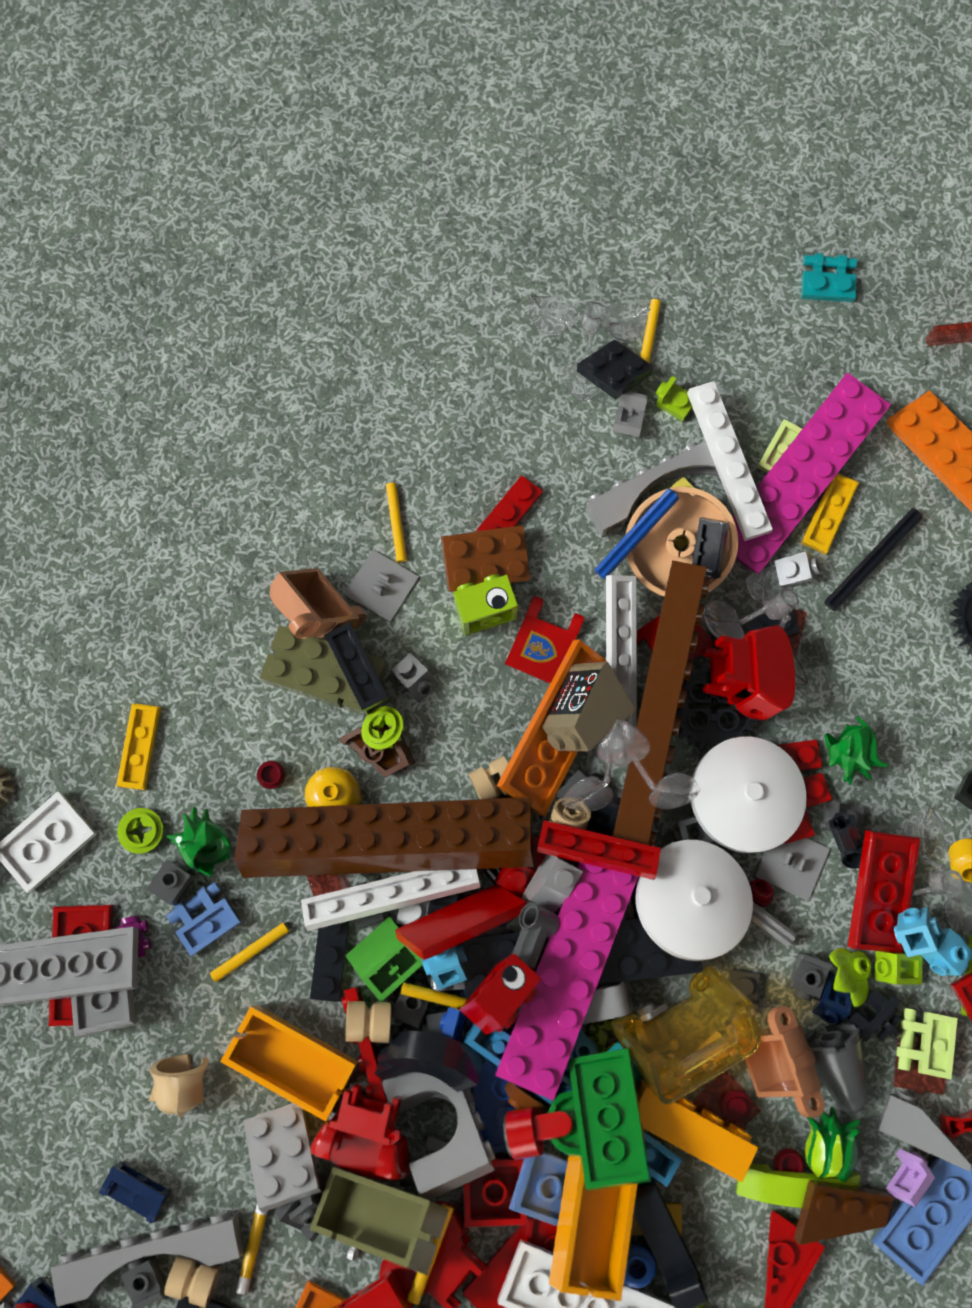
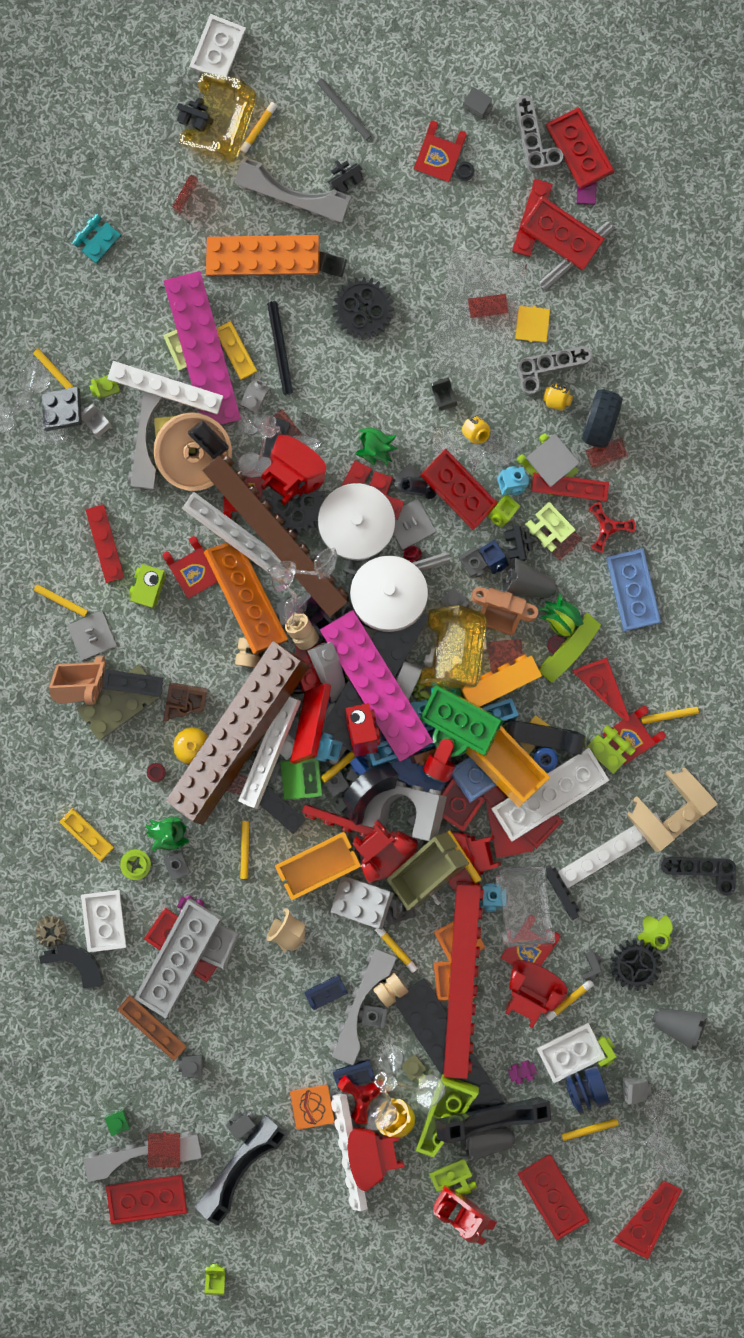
camera: 55 degrees left, 10 degrees up
(209, 925) = (215, 862): medium blue plate -> none
(368, 1021) = (326, 809): tan wheel -> none
(376, 720) = (168, 692): lime gear -> none
(414, 677) = (159, 655): dark grey bracket -> none
(484, 553) = (119, 566): dark orange plate -> none
(536, 926) = (342, 686): dark grey piece -> none
(586, 707) = (247, 575): dark tan slope -> none
(599, 850) = (326, 625): red plate -> none
(637, 533) = (170, 473): blue axle -> none
(736, 1106) = (508, 650): dark red plate -> none
(840, 1210) = (595, 635): reddish brown wing -> none
(852, 974) = (487, 540): lime plate -> none
(911, 1178) = (608, 588): lavender bracket -> none
(913, 1126) = (581, 568): light grey slope -> none
(917, 931) = (490, 489): medium azure brick -> none

